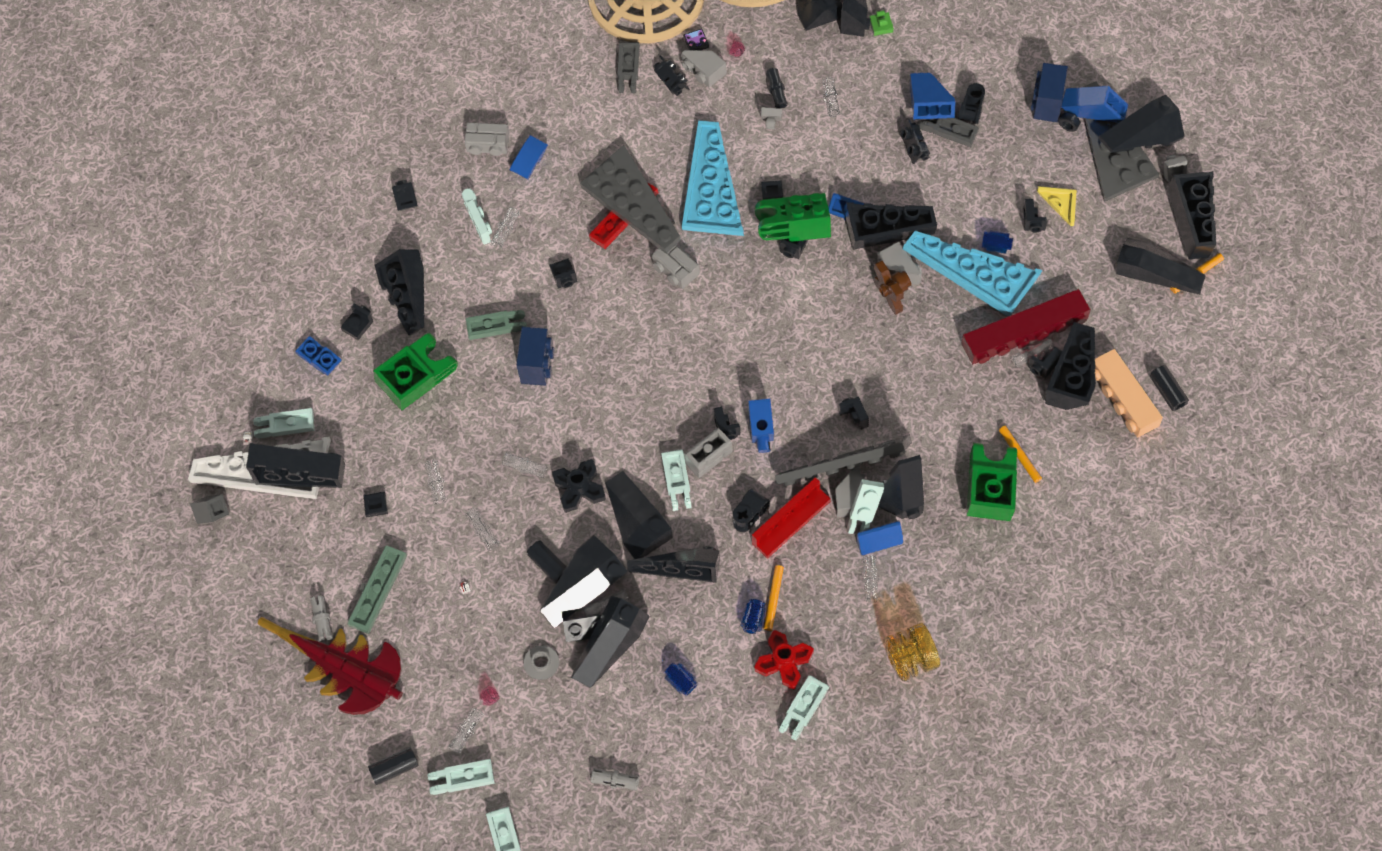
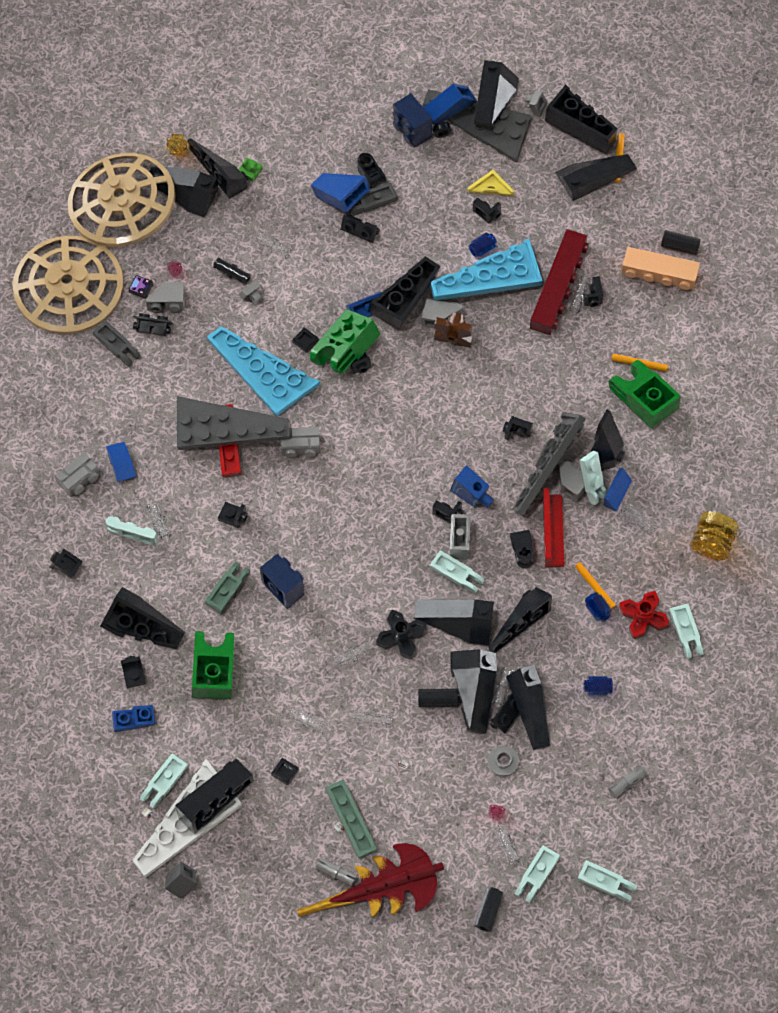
camera: 50 degrees left, 0 degrees up
(1075, 371) = (623, 285): black wedge -> none

